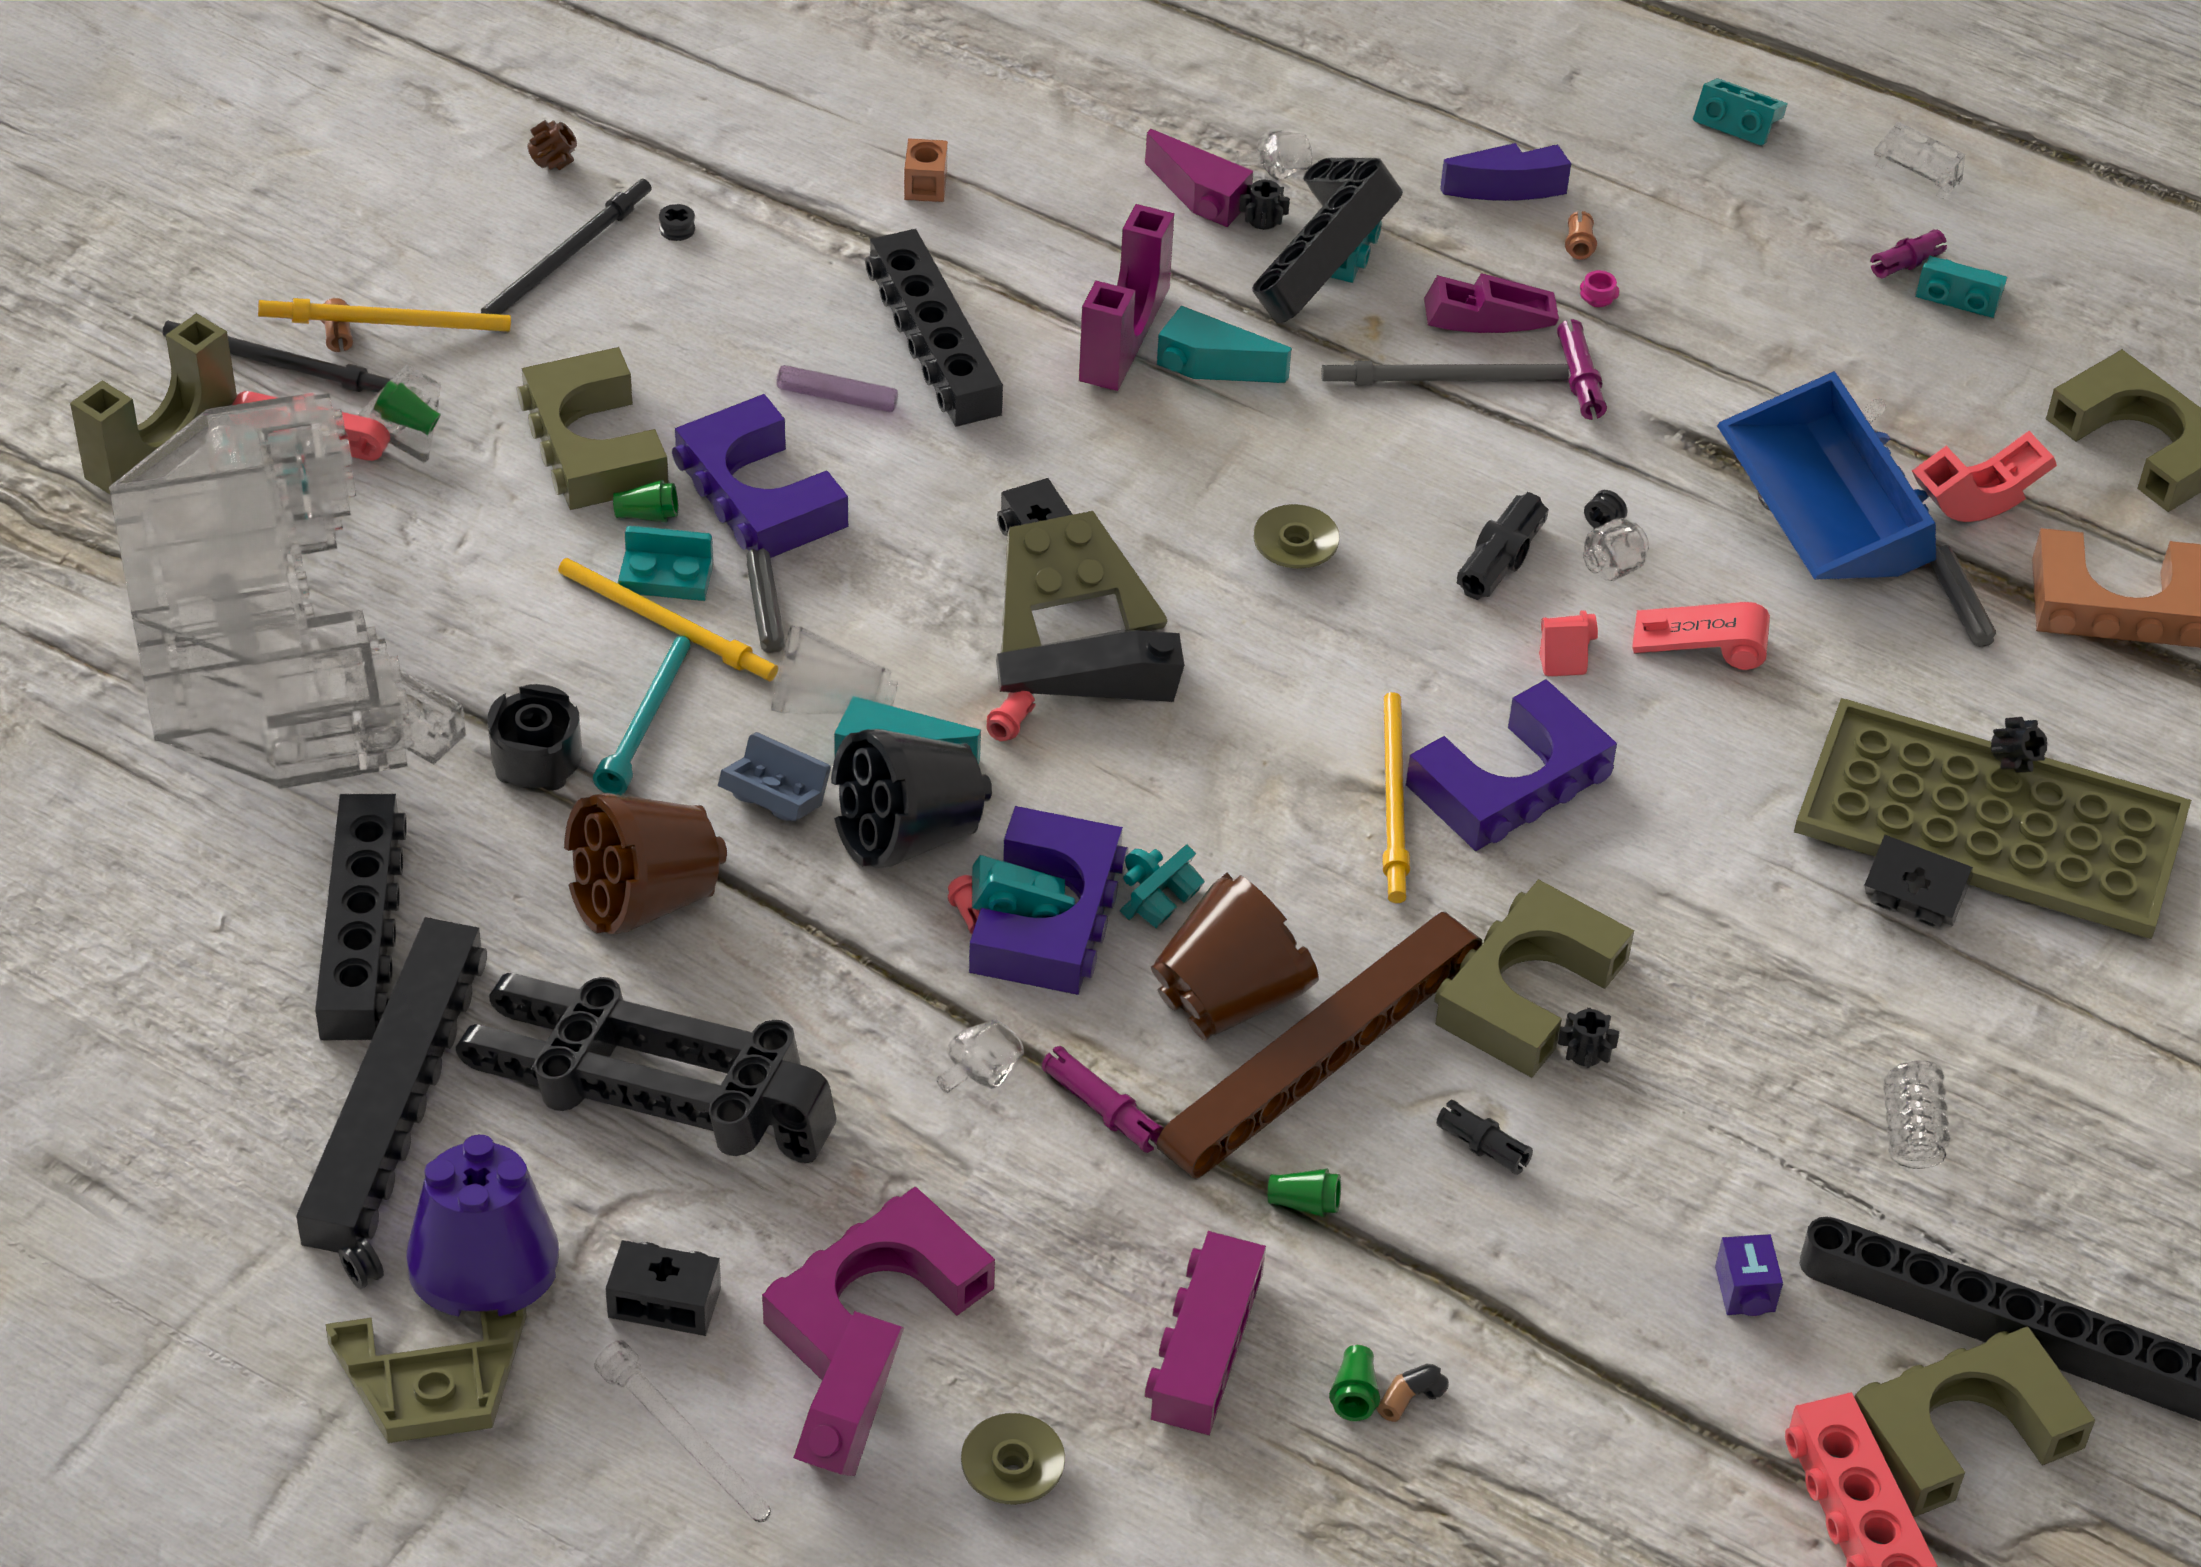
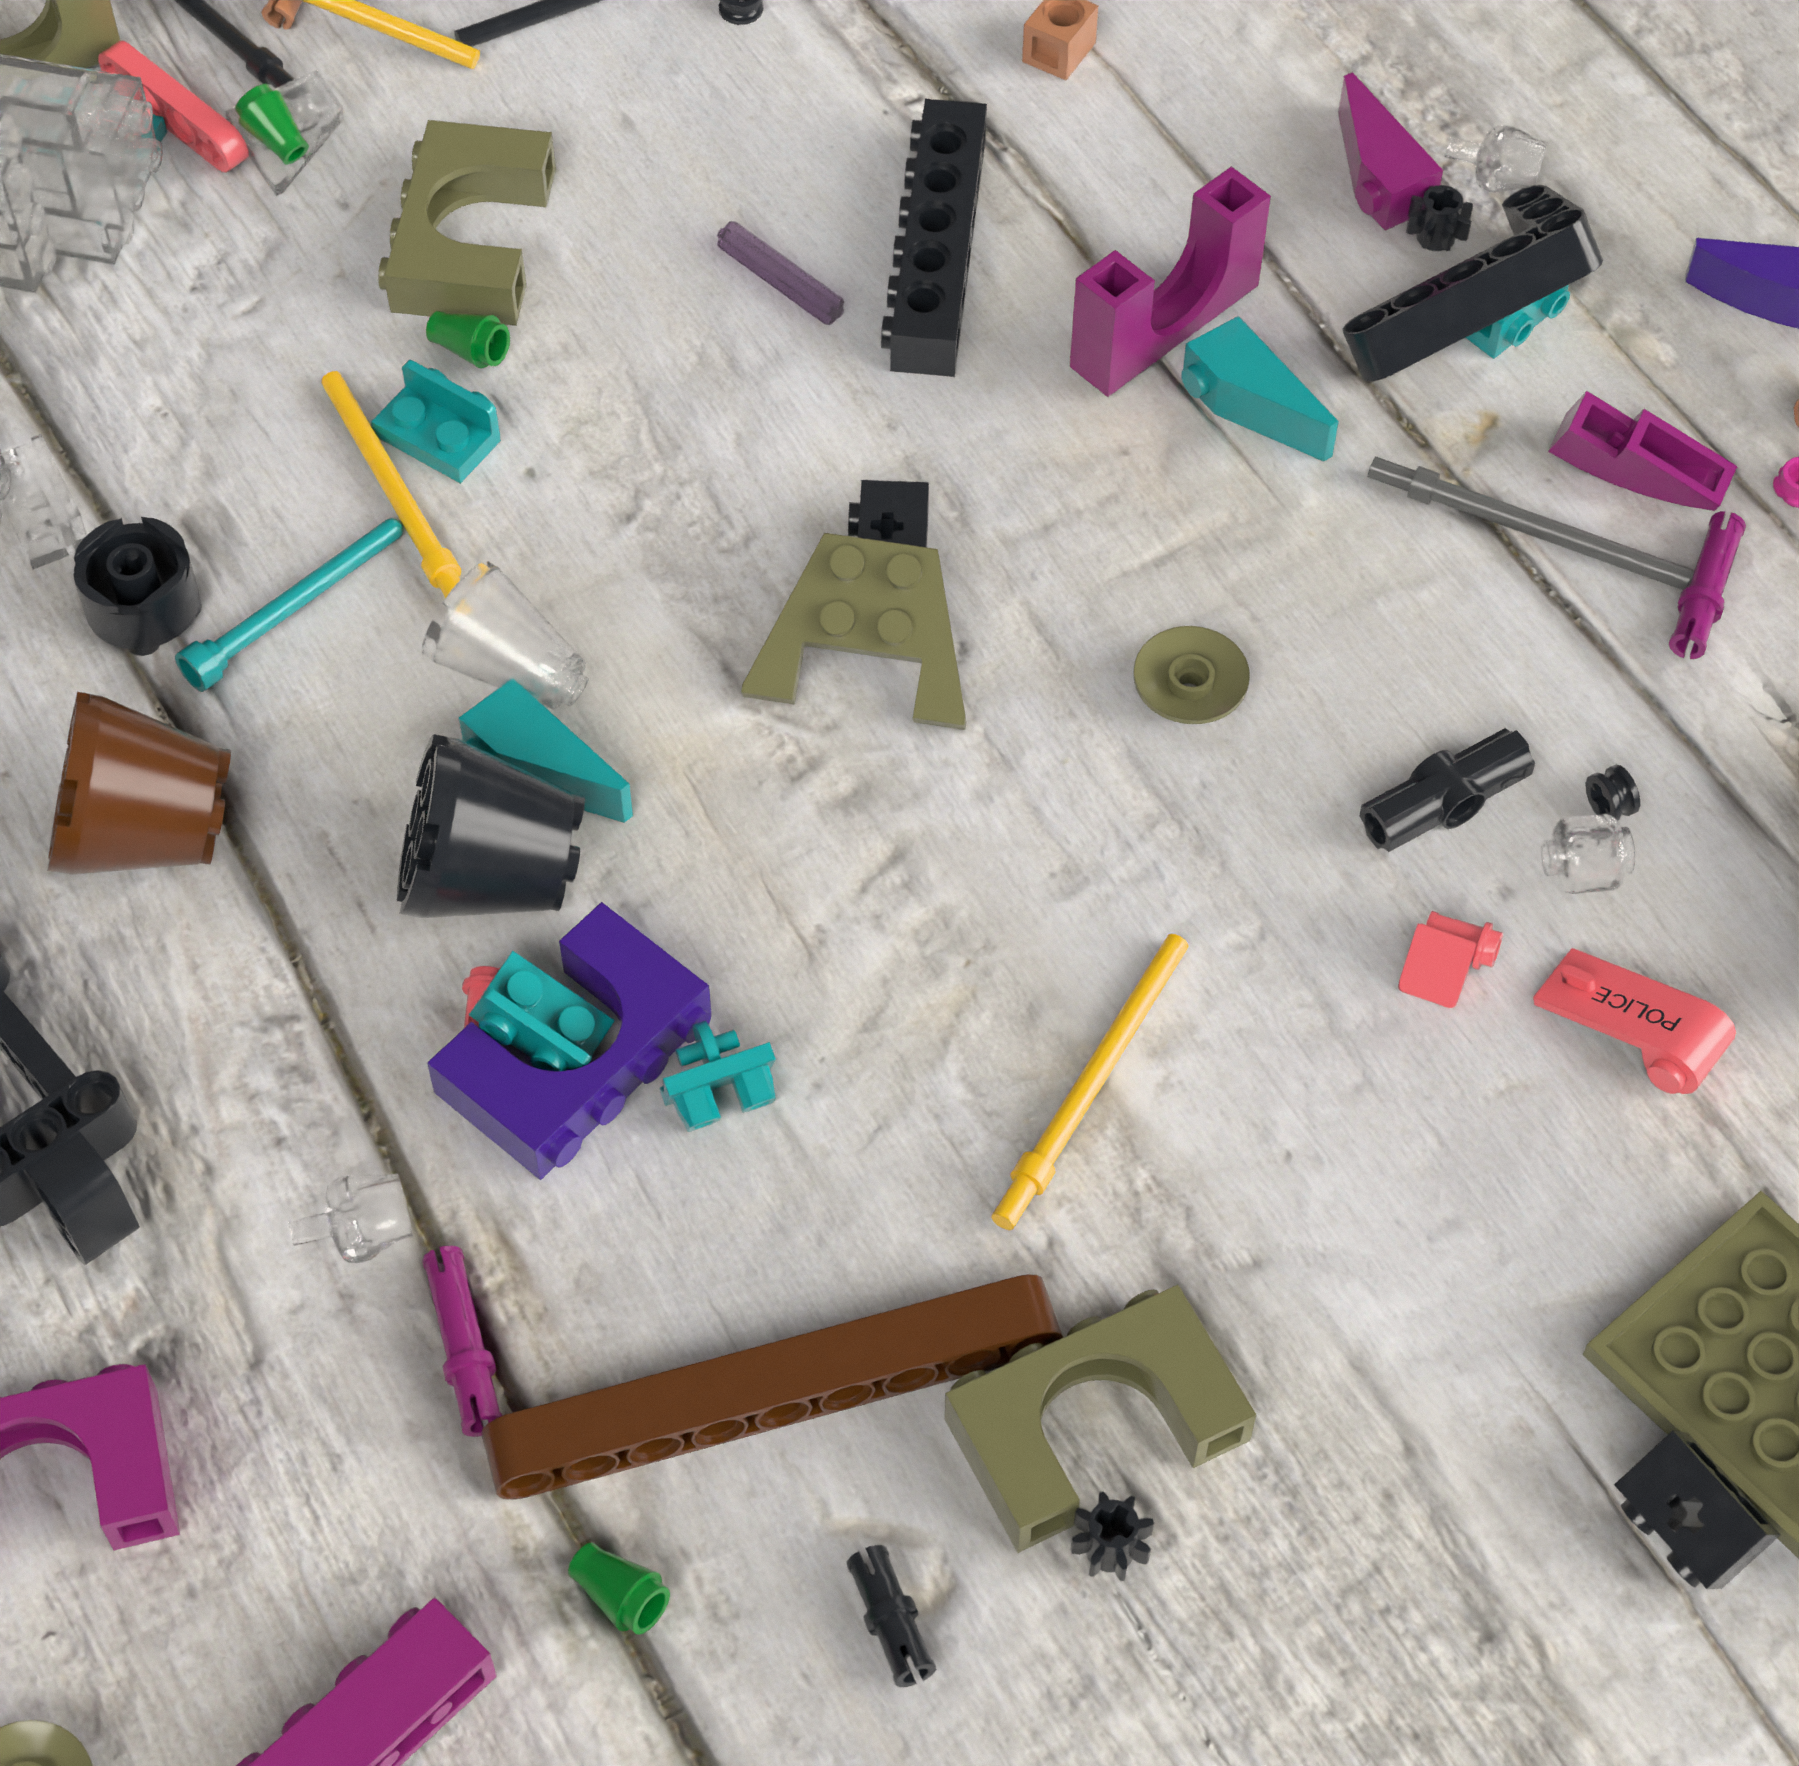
camera: 30 degrees right, 10 degrees up
(760, 518) = (593, 411): dark purple arch -> none
(765, 600) = (521, 506): dark grey axle -> none
(777, 778) = (366, 748): sand blue bracket -> none
(1005, 721) = (685, 779): coral pin -> none
(1099, 666) = (850, 754): black wedge -> none
(1232, 959) = (713, 1229): reddish brown cone -> none
(1489, 806) = (1198, 1149): dark purple arch -> none

